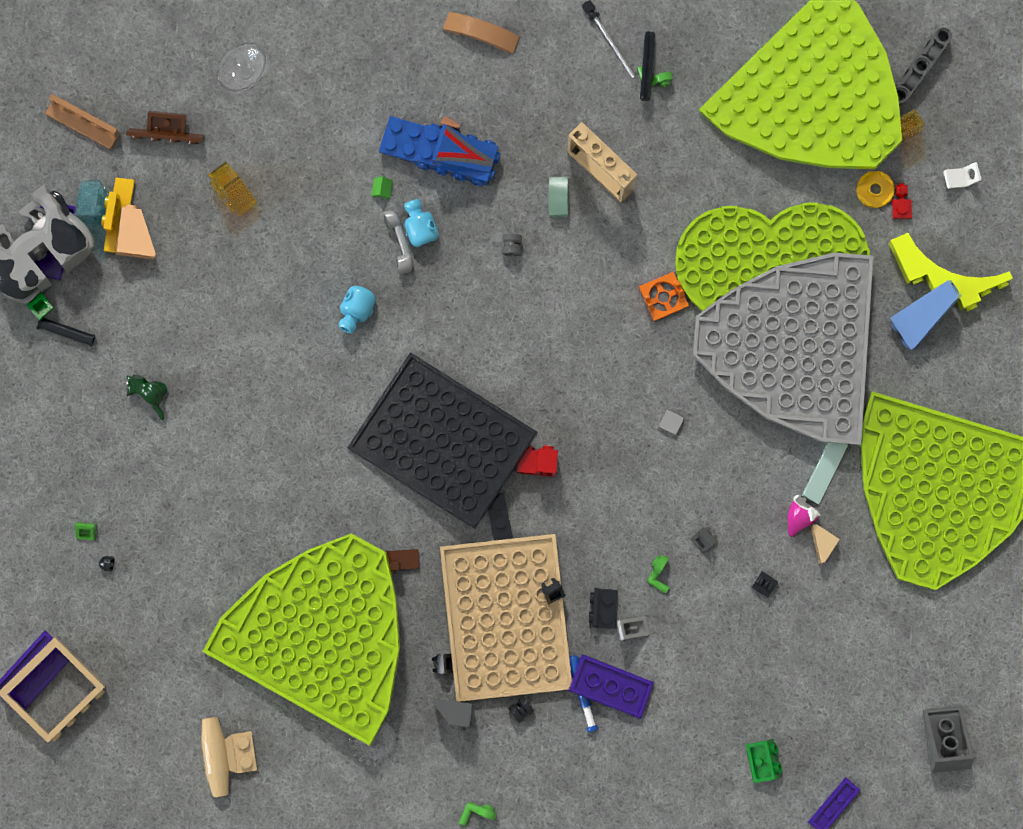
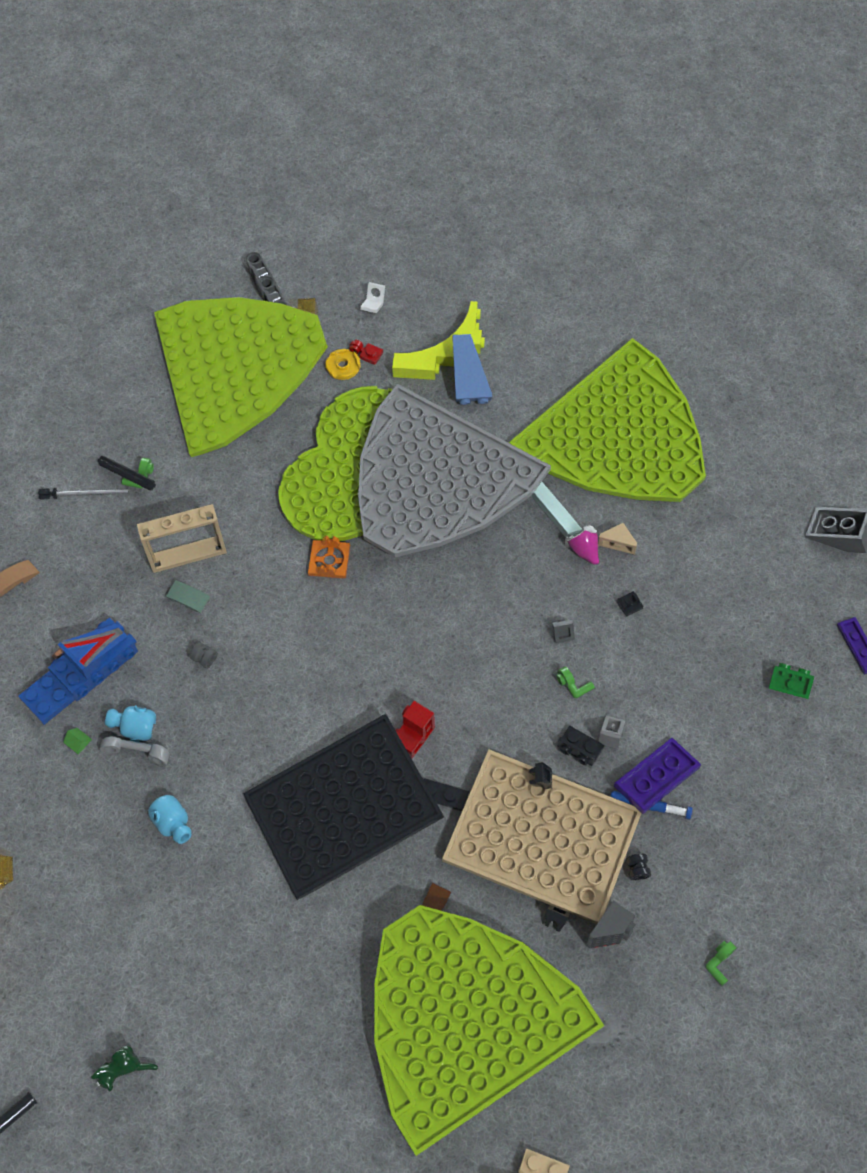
camera: 60 degrees left, 20 degrees down
(671, 422) = (443, 607): light grey tile -> none

